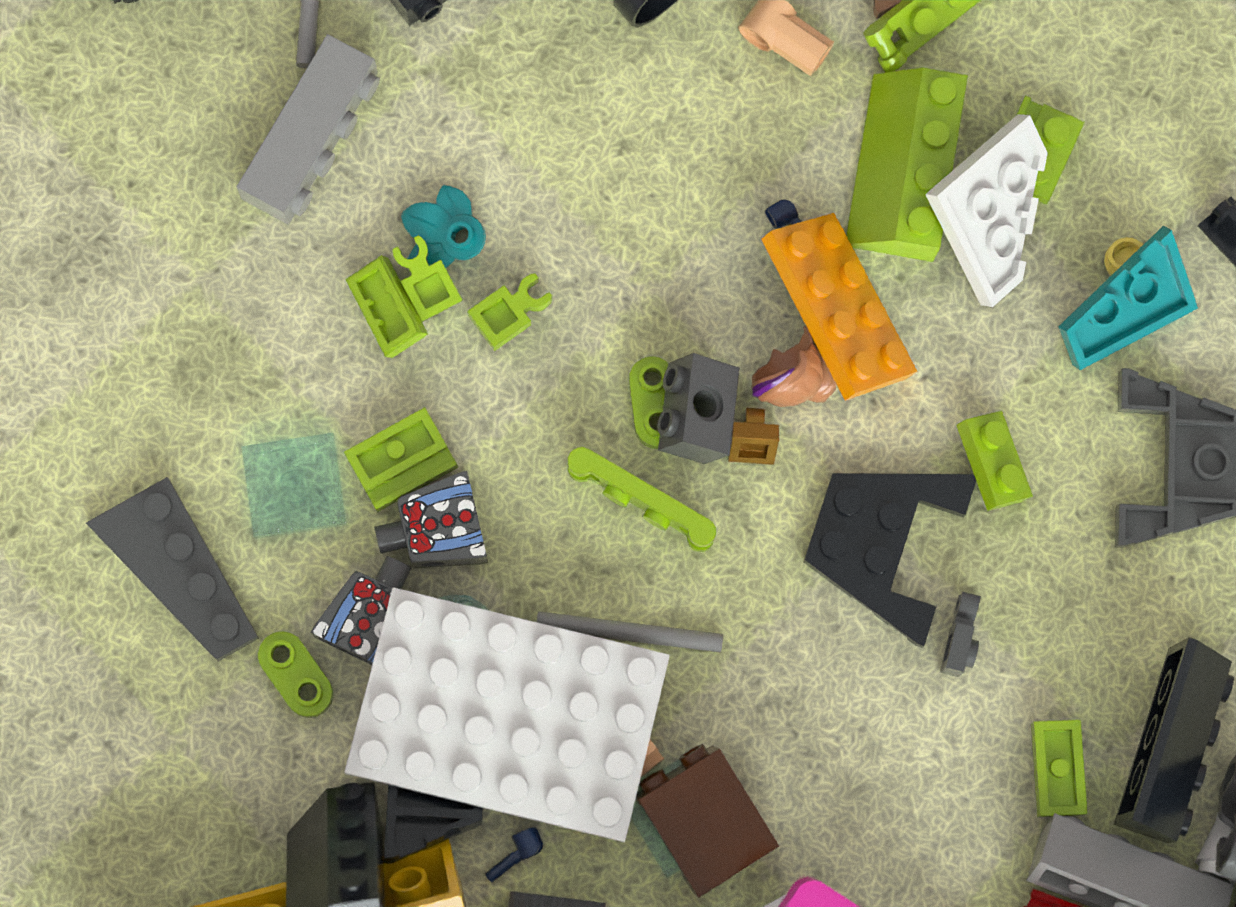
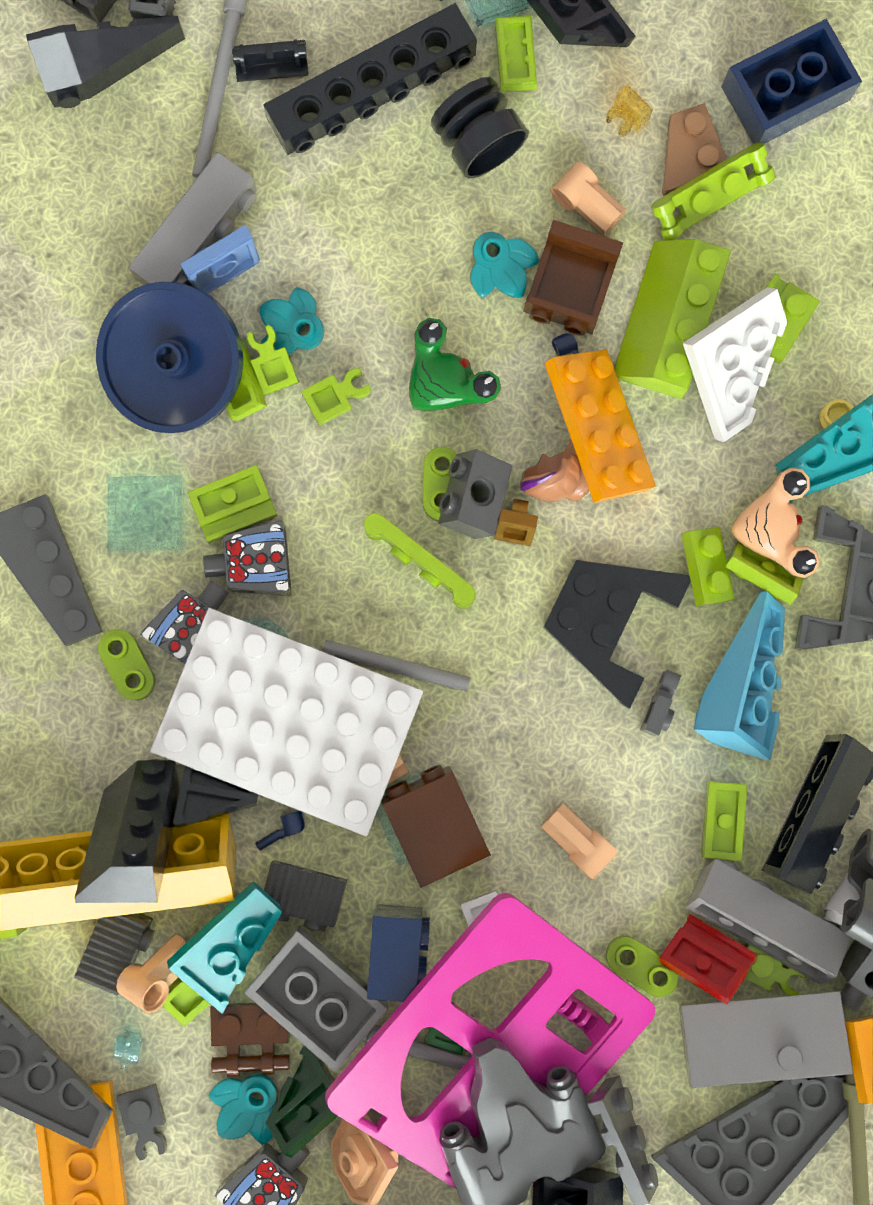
camera: 10 degrees right, 5 degrees up
(300, 290) = (169, 357): none -> dark blue dish
(350, 167) = (222, 261): none -> medium blue plate
(641, 273) = (445, 379): none -> green head
(696, 132) = (505, 269): none -> teal plate
(780, 132) = (572, 278): none -> reddish brown panel
(894, 823) = (585, 846): none -> light nougat piece
(1055, 614) = (738, 699): none -> medium azure wedge
(1064, 457) = (764, 573): none -> lime plate
(1066, 399) = (773, 524): none -> light nougat head

